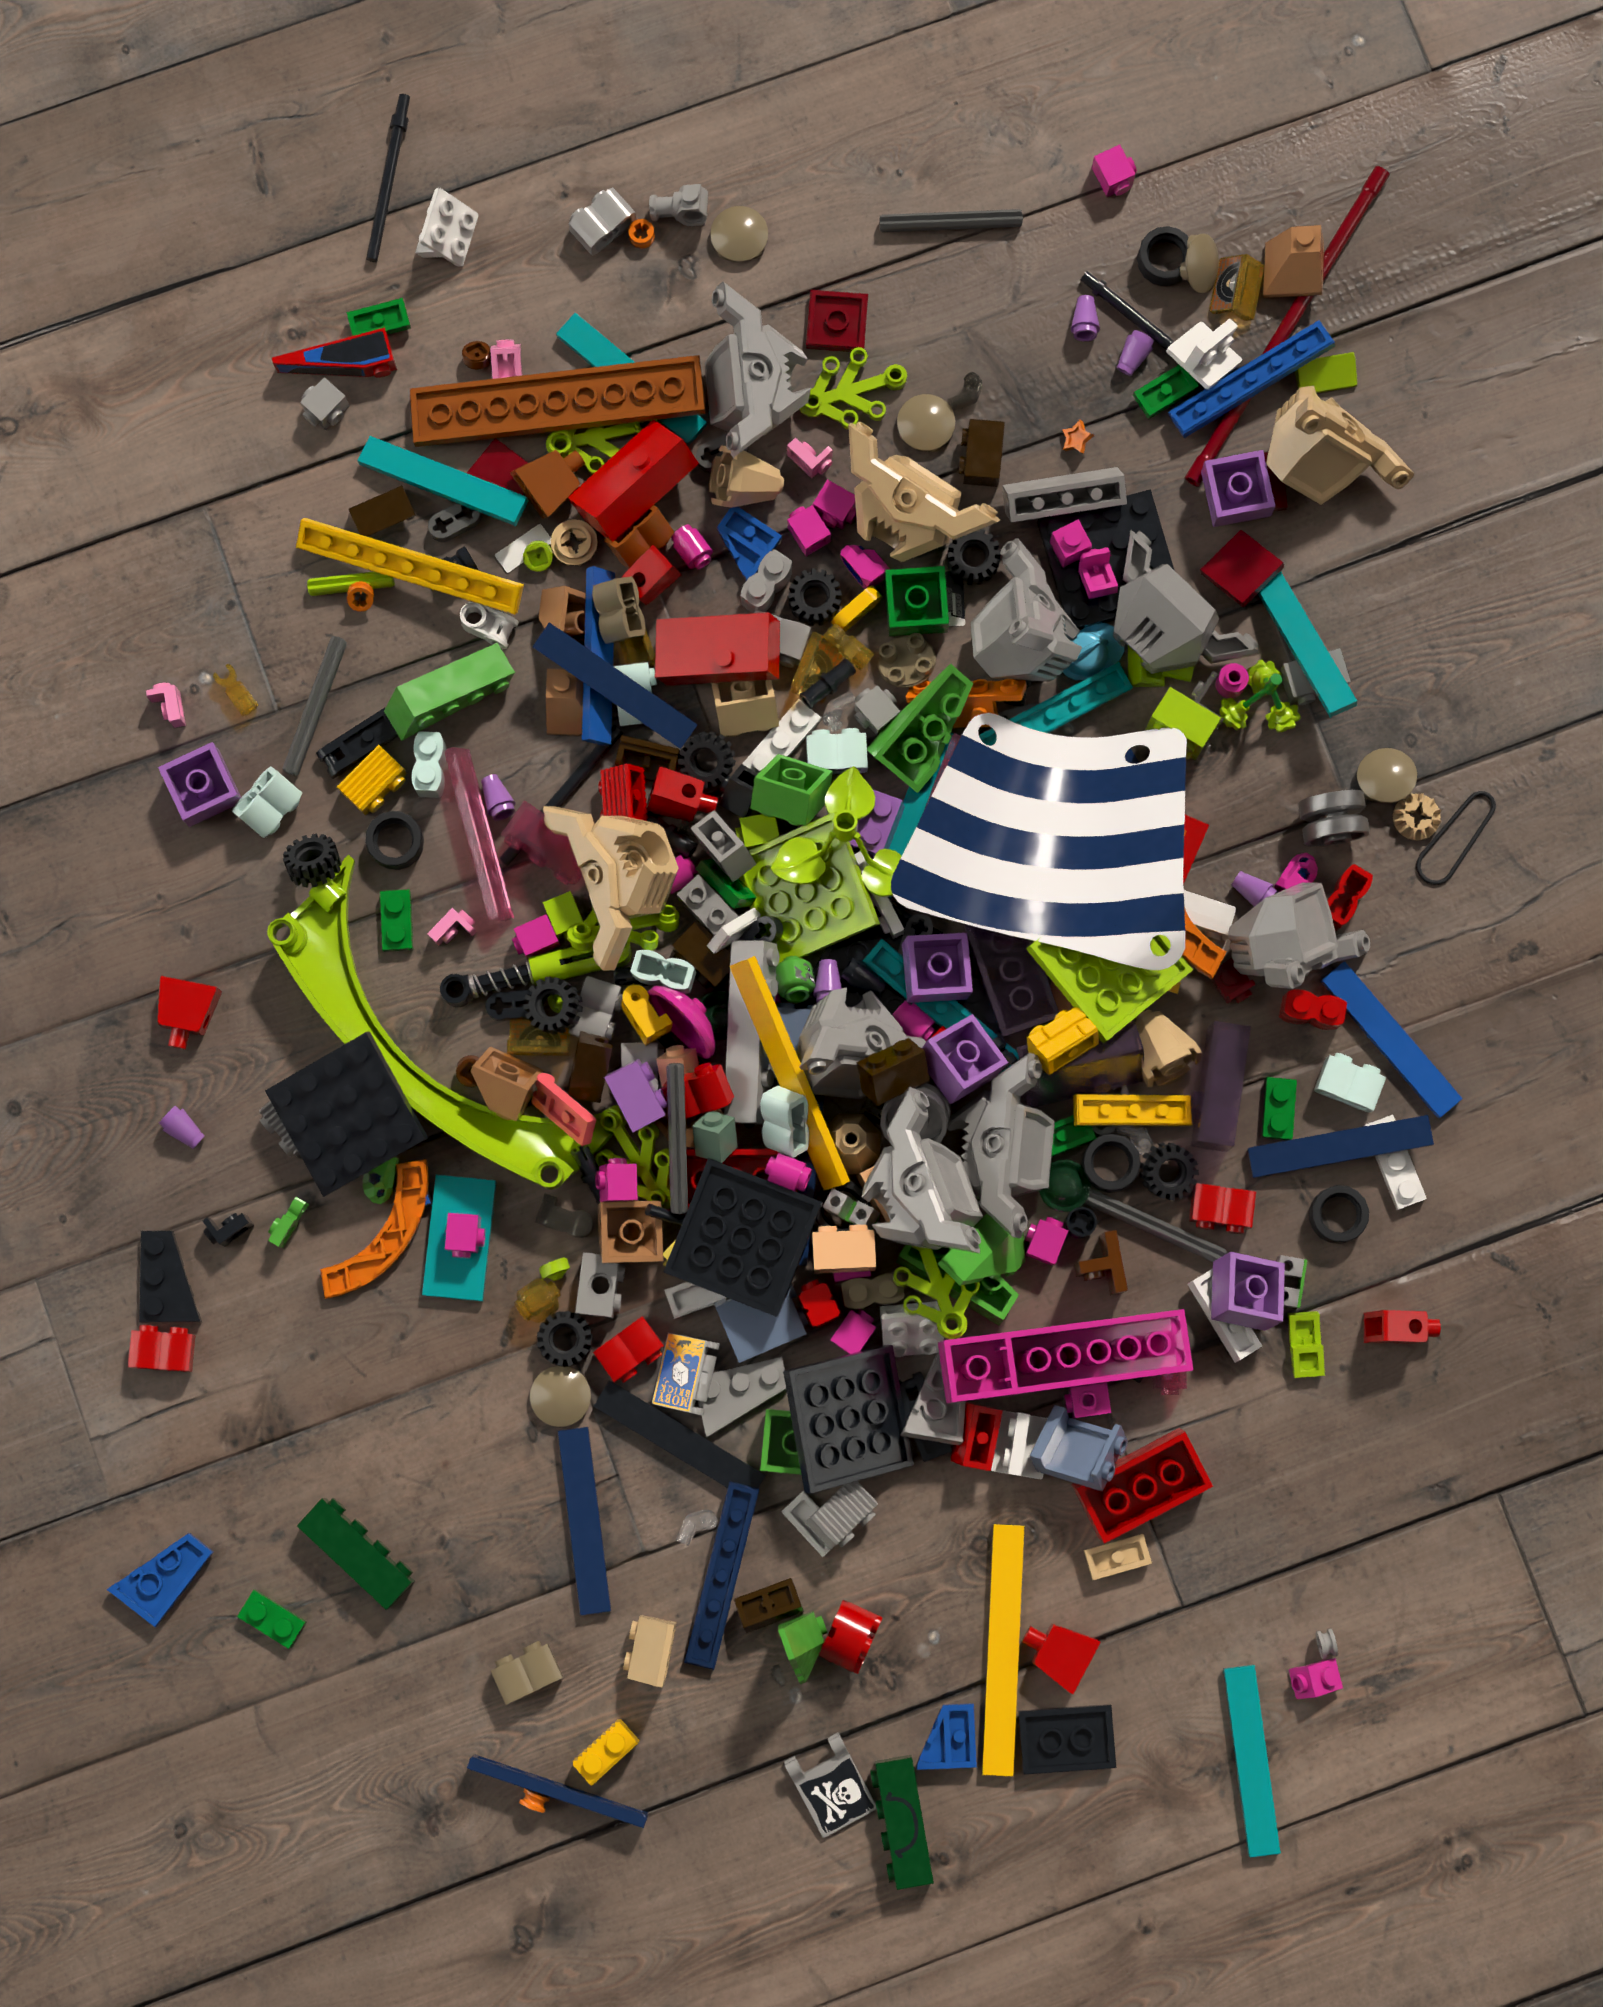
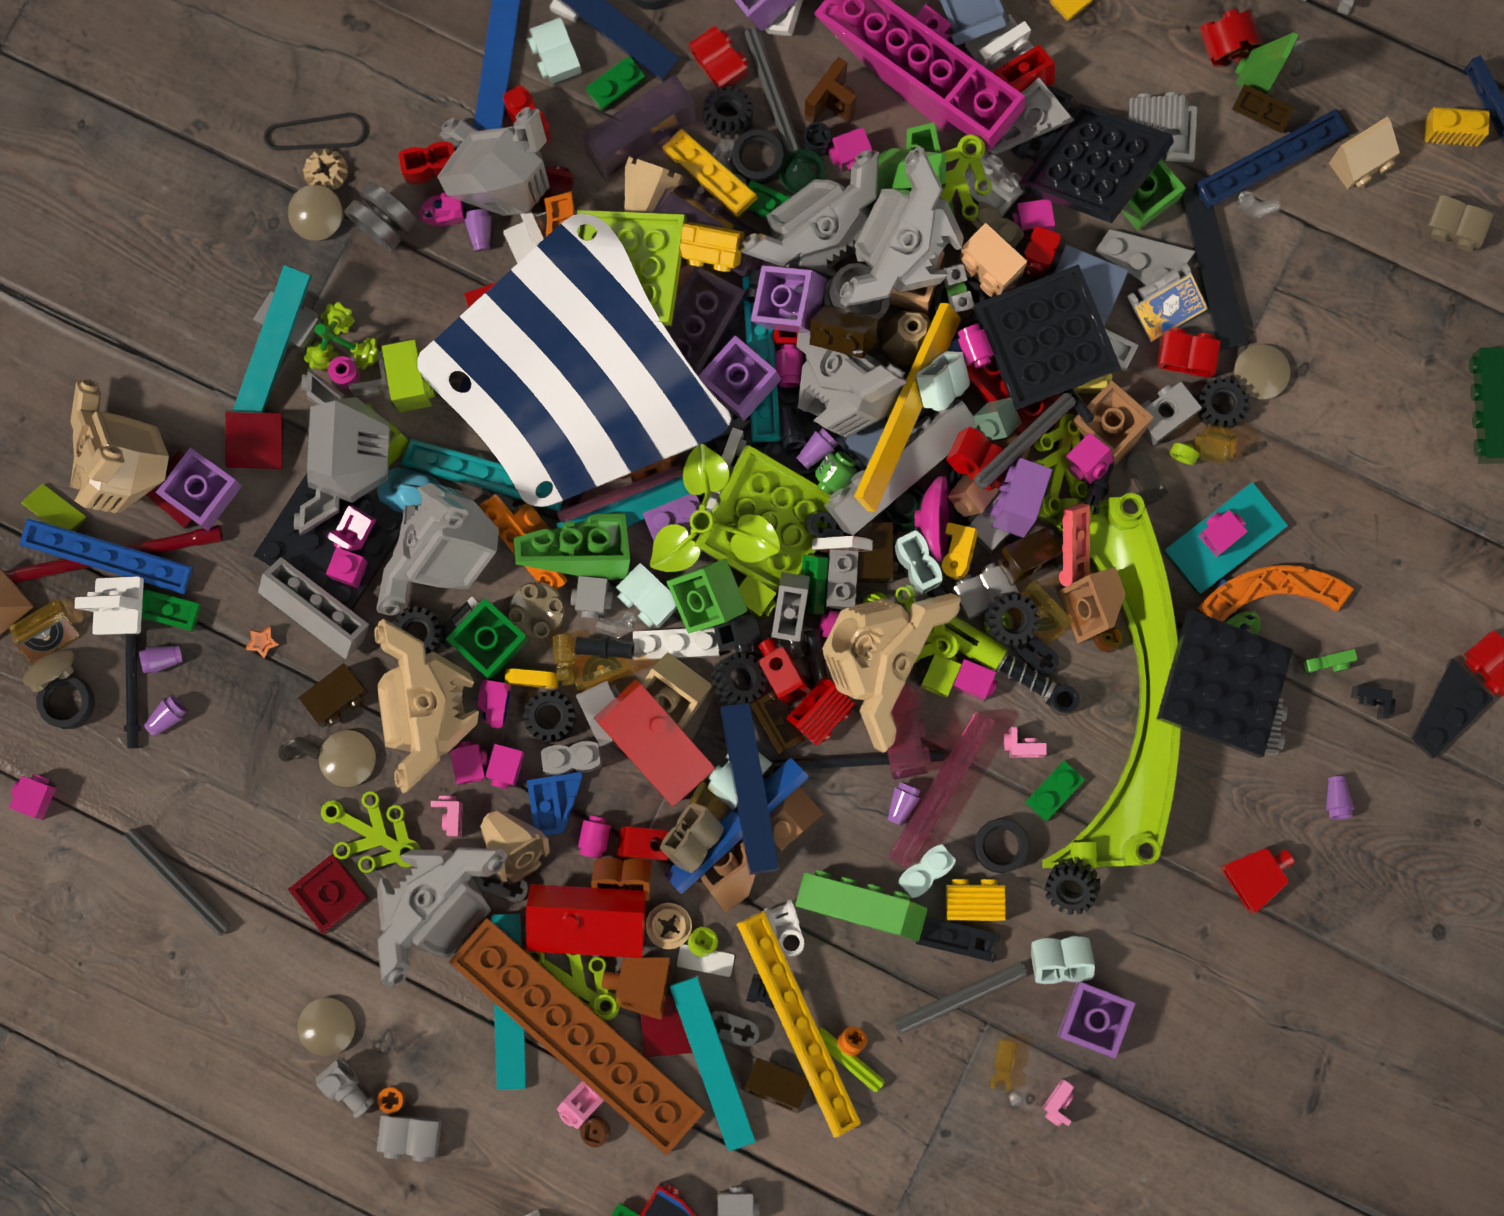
camera: 130 degrees left, 0 degrees up
(584, 1521) = (1325, 280): dark blue tile -> none

